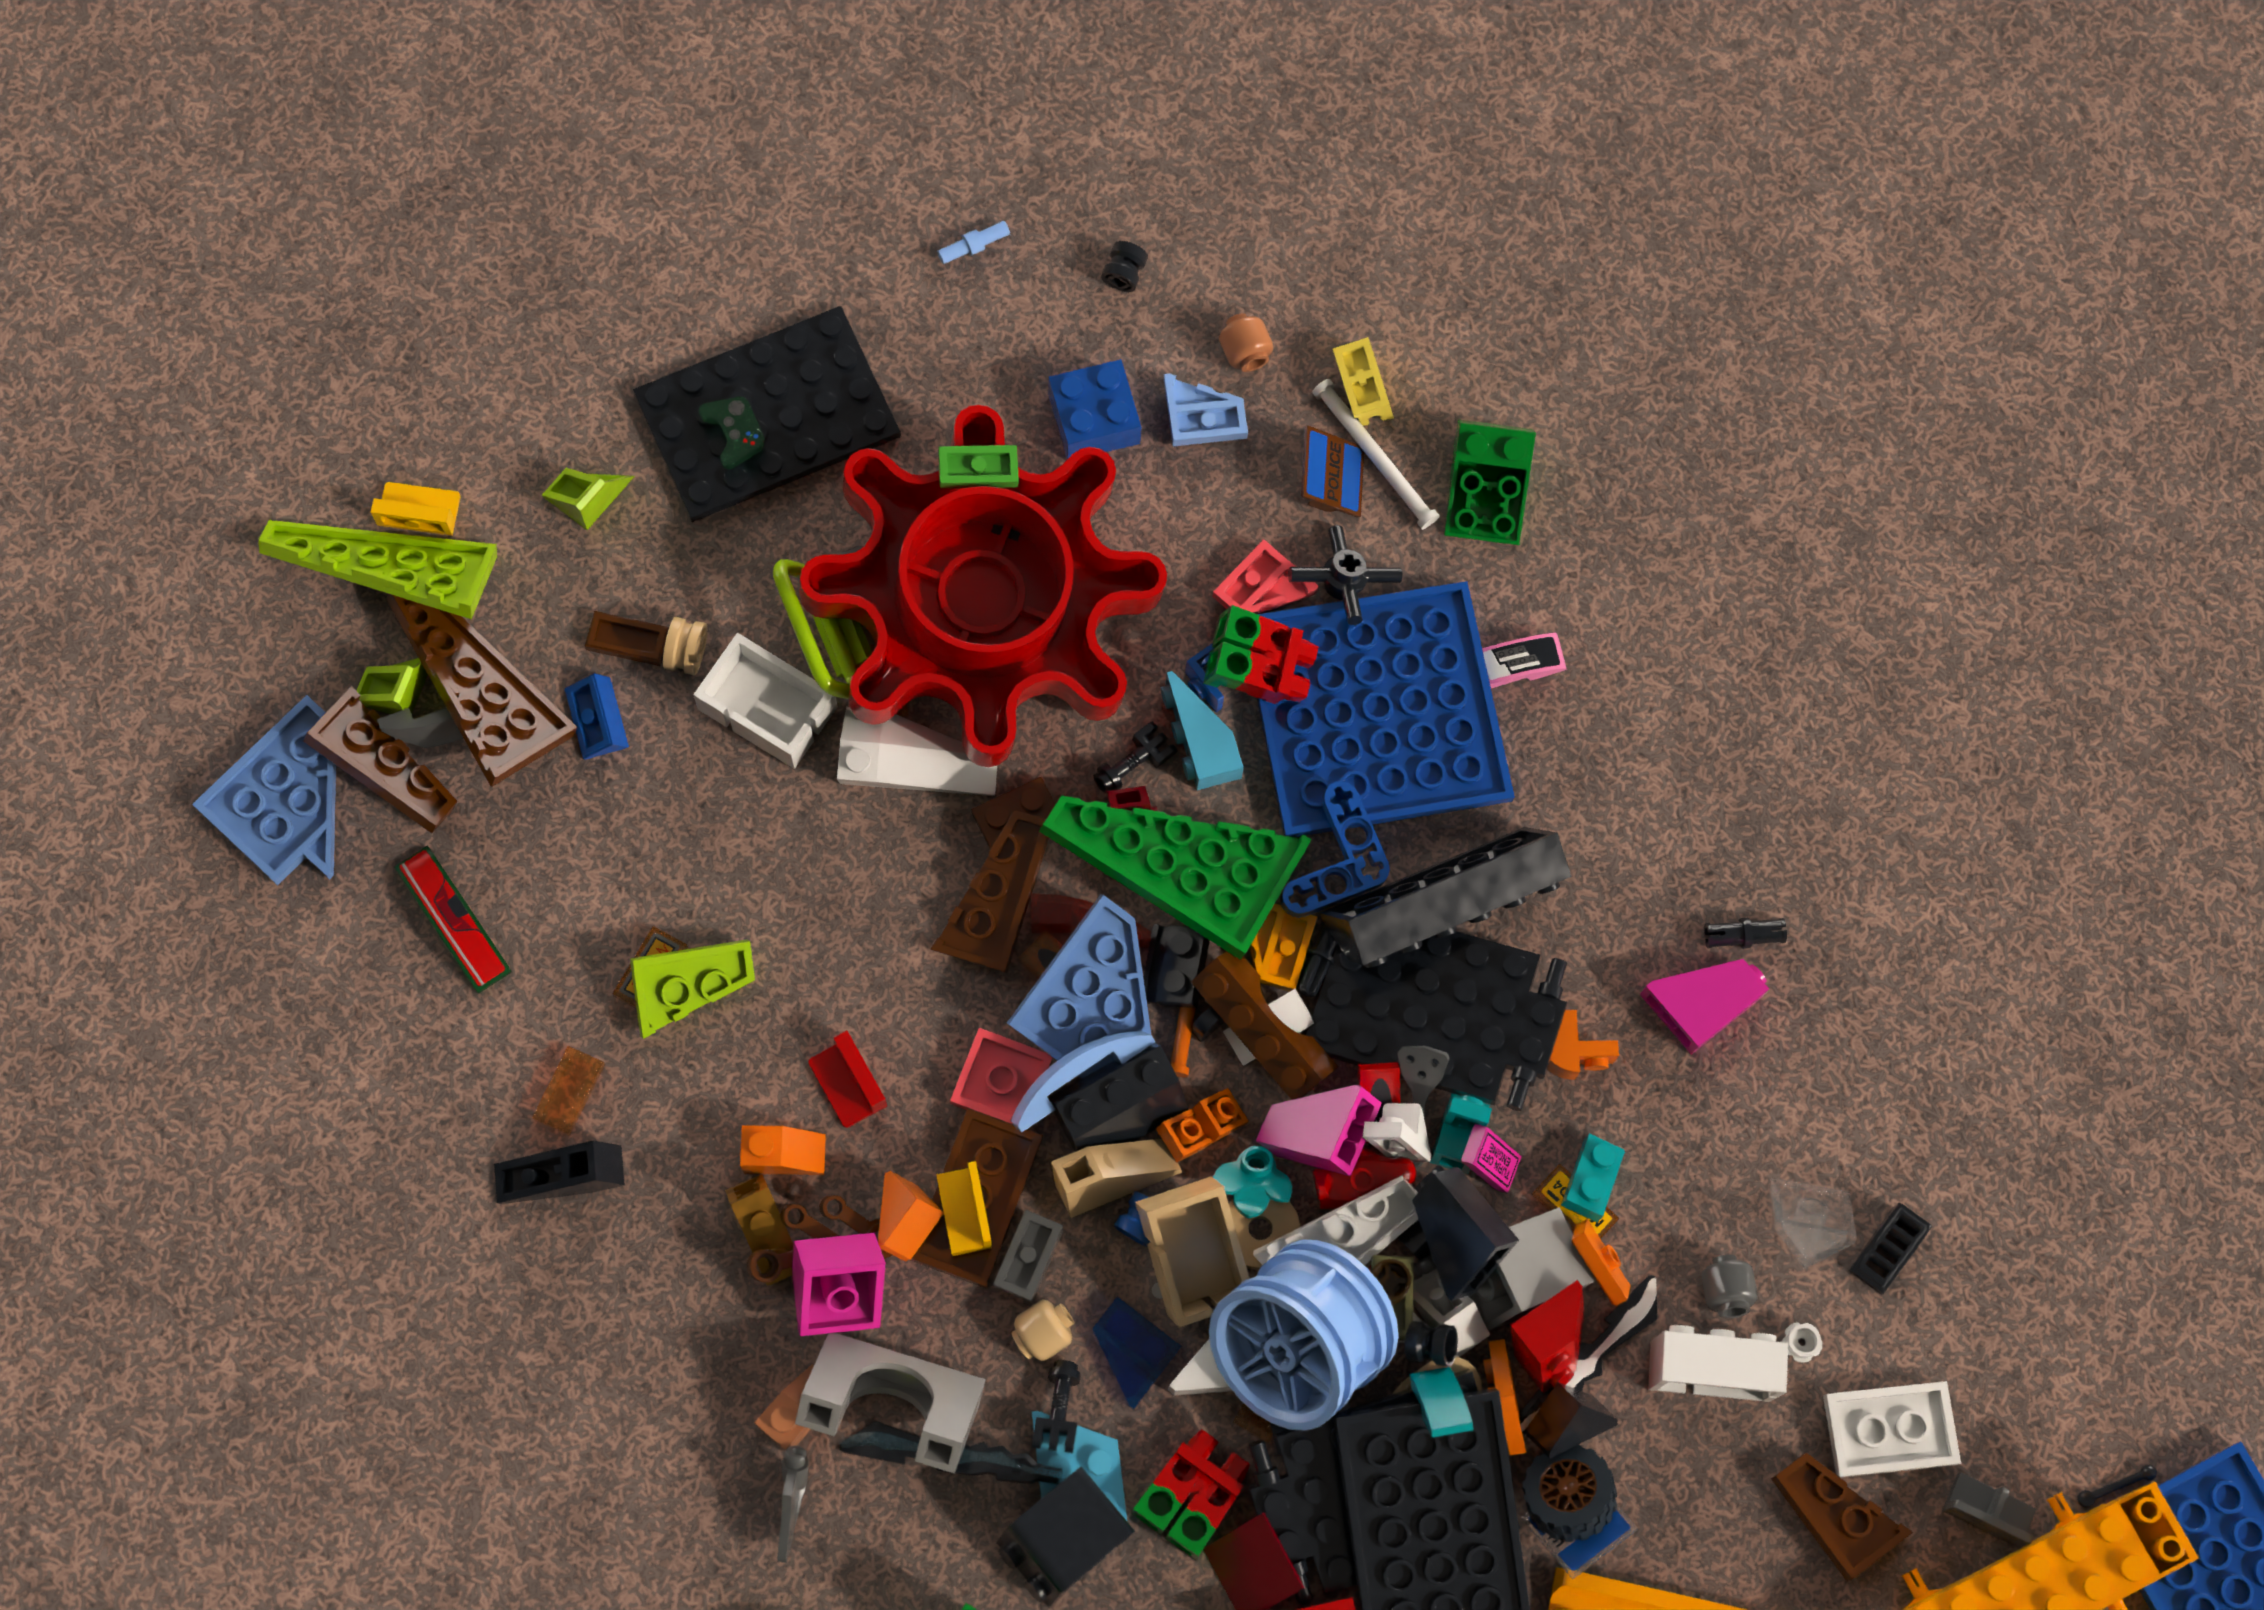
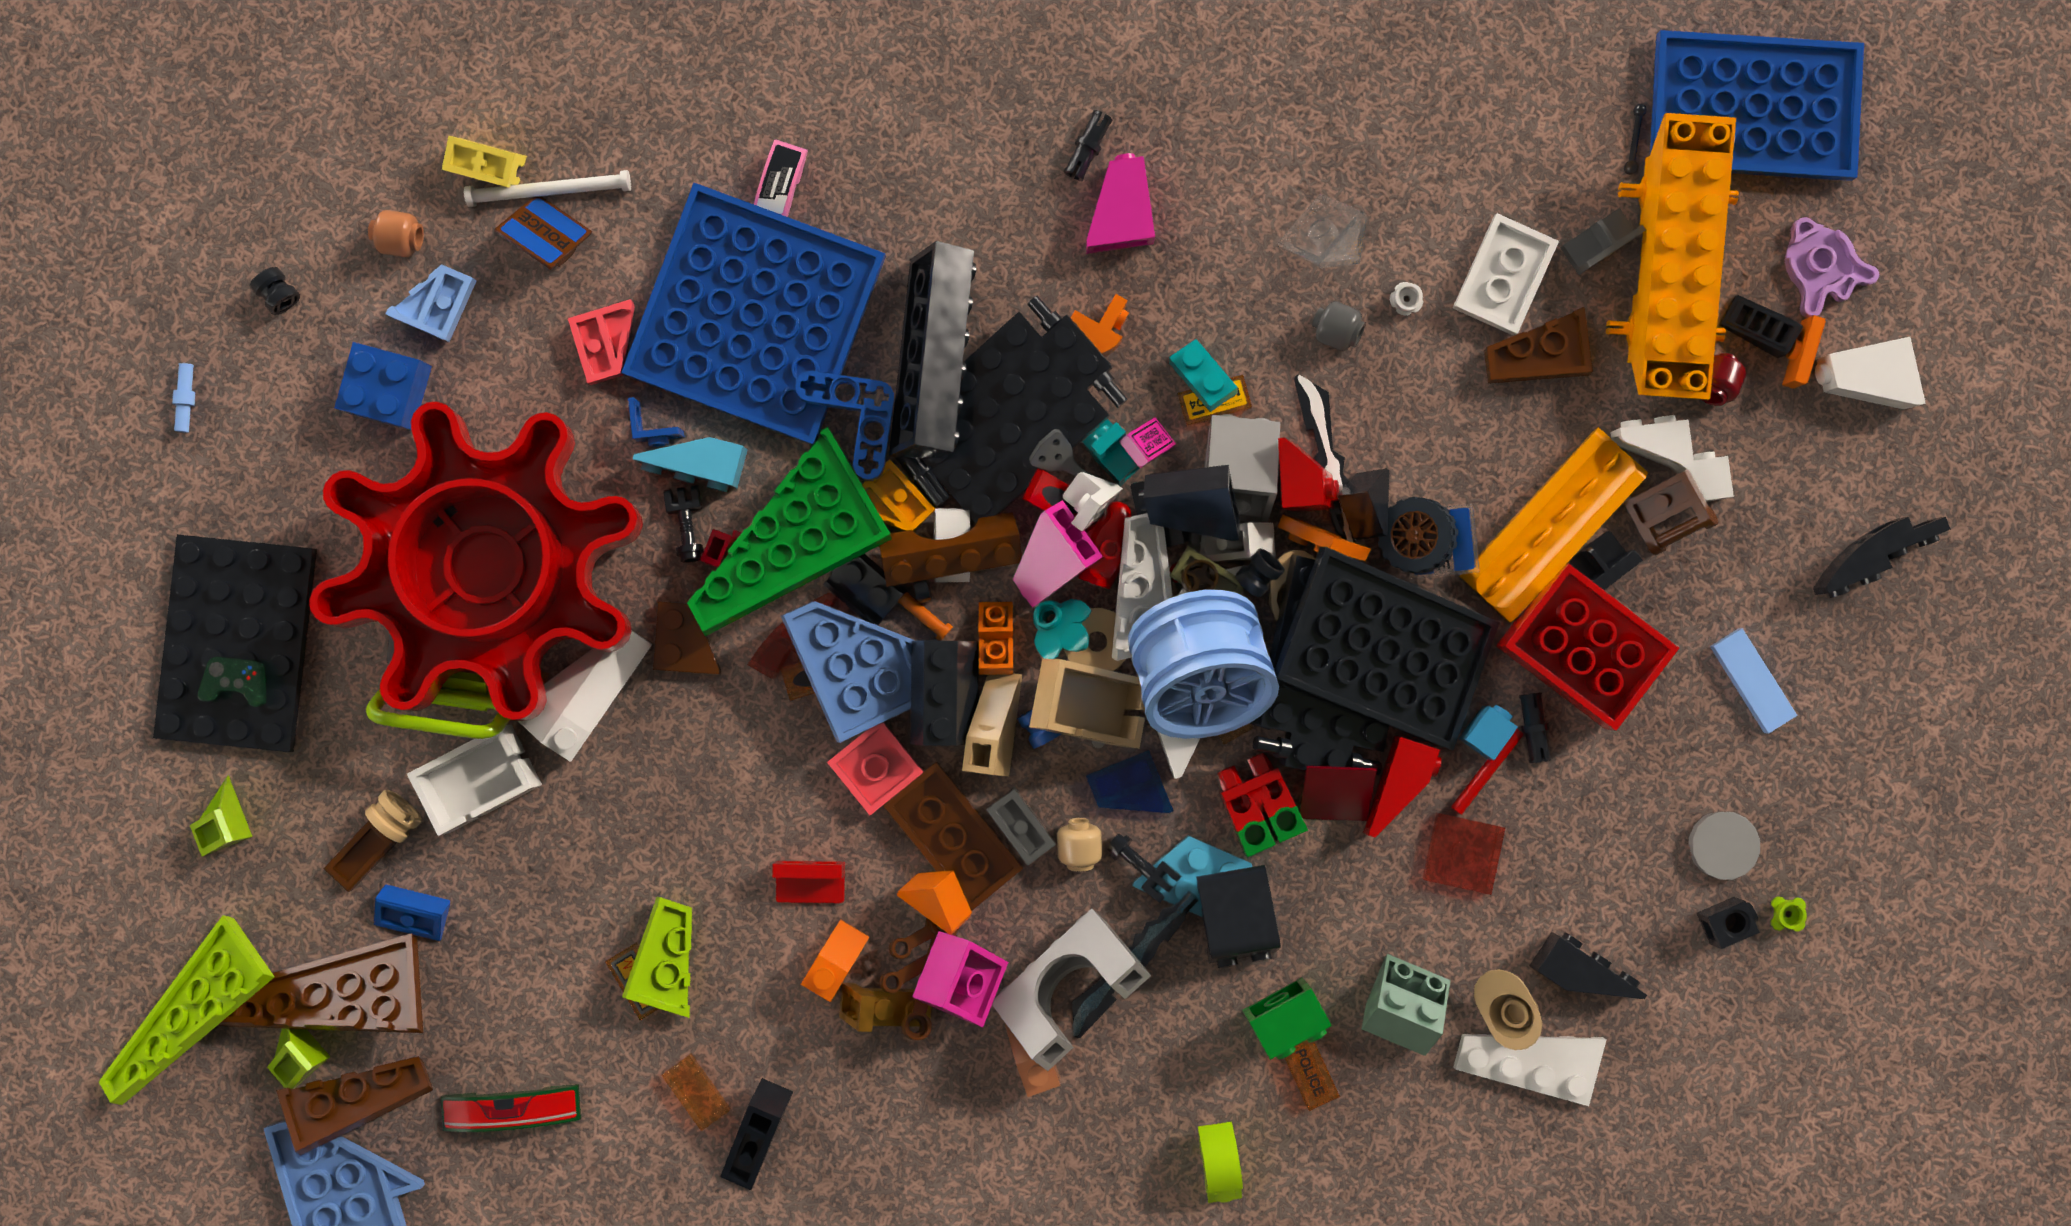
camera: 55 degrees left, 15 degrees up
(416, 508) = (156, 960): yellow panel -> none
(426, 731) = (346, 1053): dark grey slope -> none
(795, 1477) = (1082, 1085): dark grey arm -> none
(964, 1210) = (959, 853): yellow panel -> none
(978, 466) = (379, 513): bright green plate -> none
(995, 905) = (741, 698): reddish brown wing -> none
(1035, 1102) = (912, 757): light blue slope -> none
(1259, 657) = (662, 381): hips -> none
(1345, 575) = (633, 273): black bar -> none
(1441, 1402) = (1310, 594): teal slope -> none
(1489, 482) = (622, 114): green slope -> none
(1602, 1262) = (1268, 409): orange plate -> none
(1718, 1364) = (1392, 371): white piece -> none
(1910, 1220) = (1385, 173): black slope -> none

